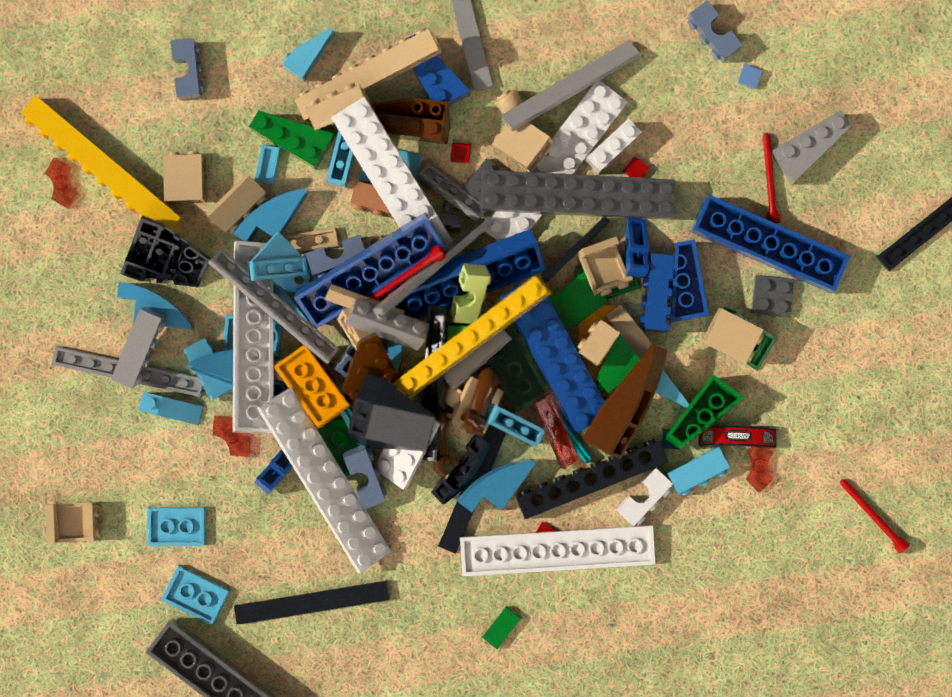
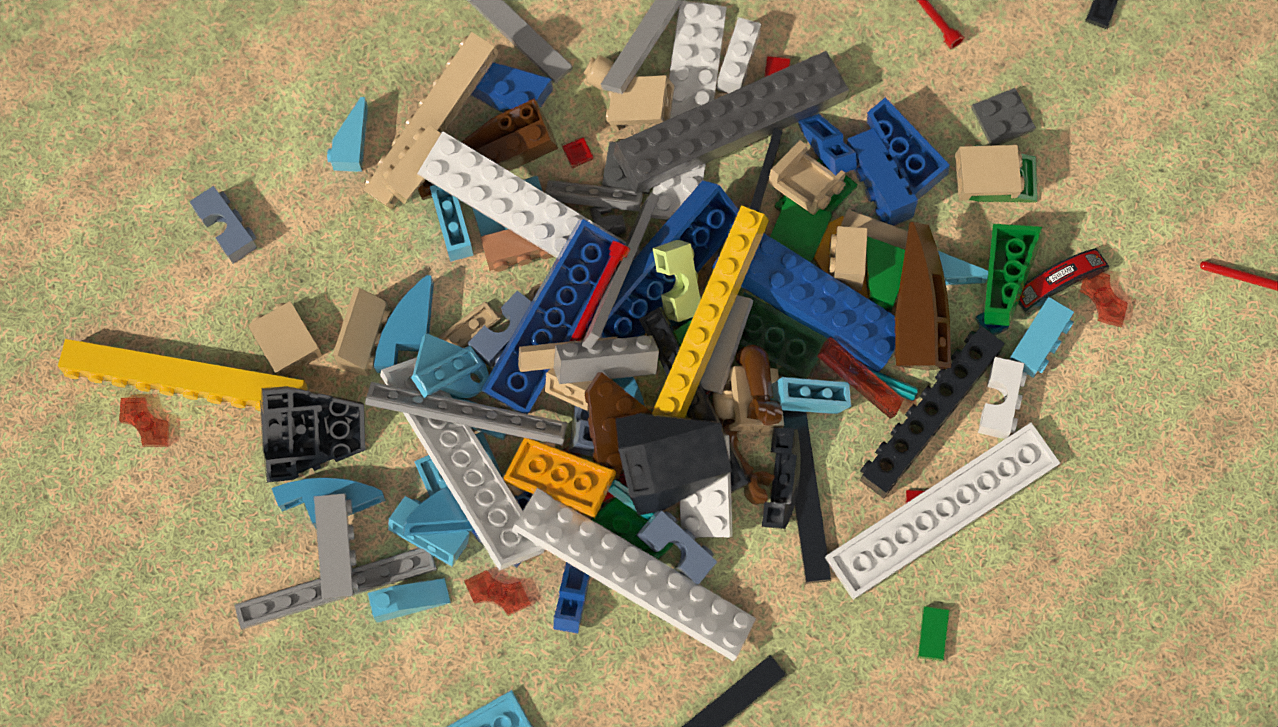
camera: 30 degrees left, 15 degrees down
(268, 164) = (371, 275): medium azure tile -> none
(293, 137) = (383, 231): green wedge -> none
(496, 485) = (831, 476): dark azure slope -> none
(770, 244) = (967, 63): blue brick -> none

